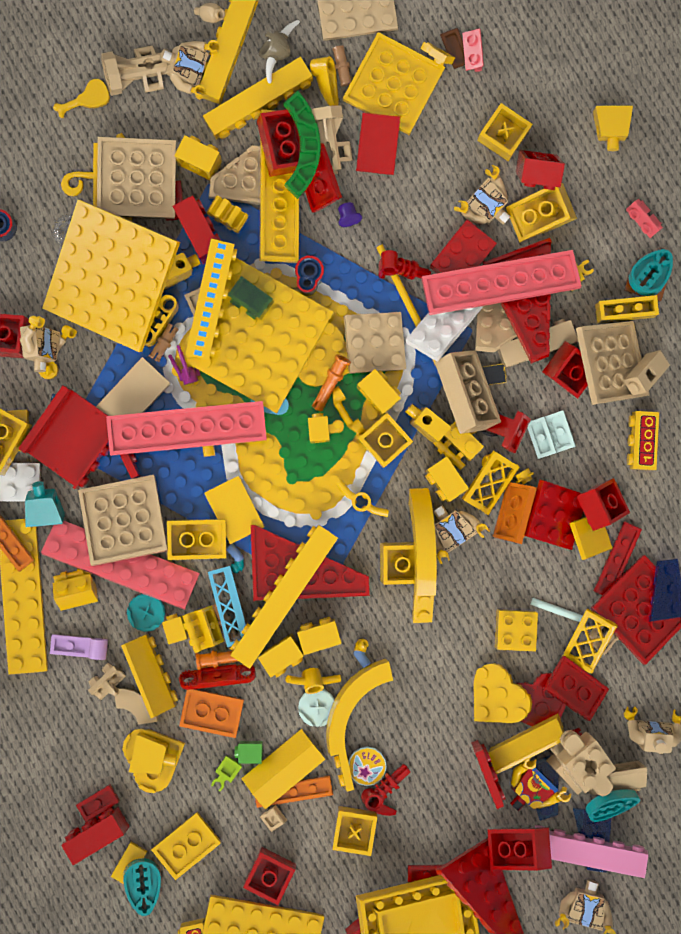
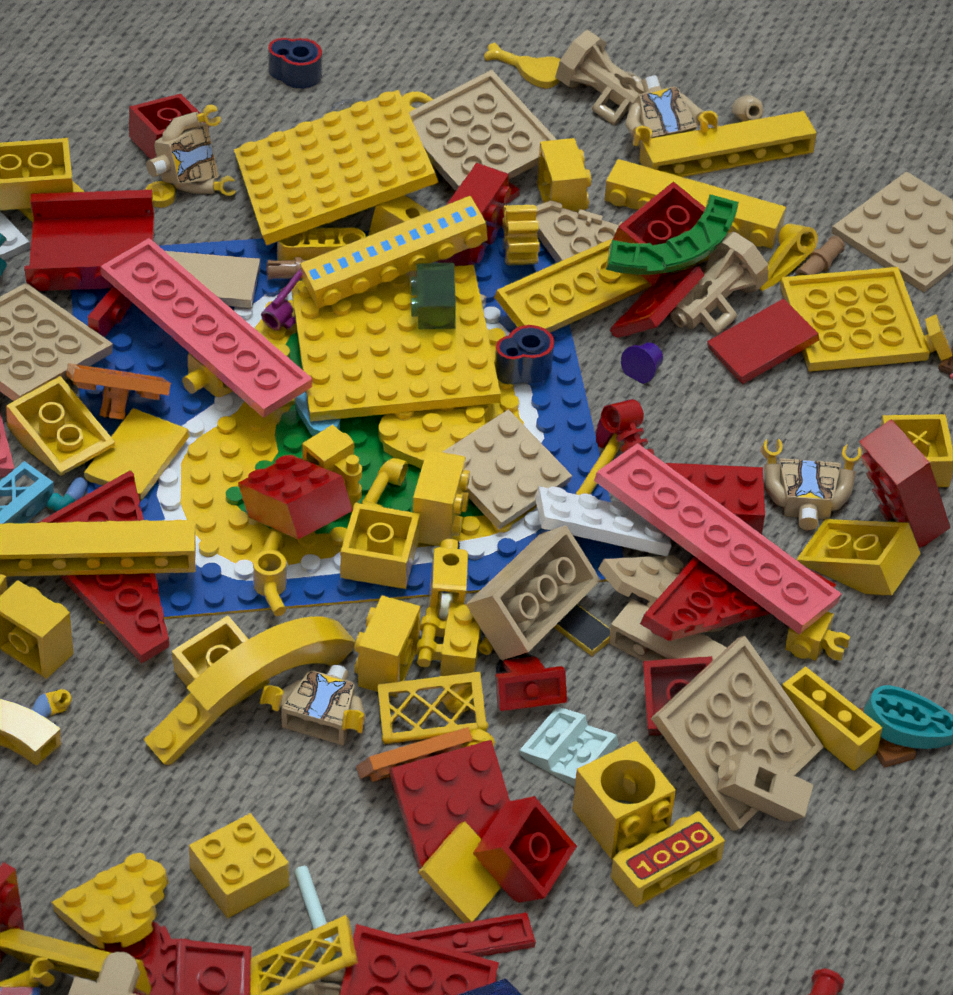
camera: 50 degrees right, 40 degrees down
(190, 494) = (117, 386): none -> orange plate
(276, 48) = (774, 183): dark tan helmet -> none
(331, 462) = (295, 496): none -> red brick
(334, 374) = (418, 441): orange pin -> none
(595, 426) = (625, 776): none -> yellow brick

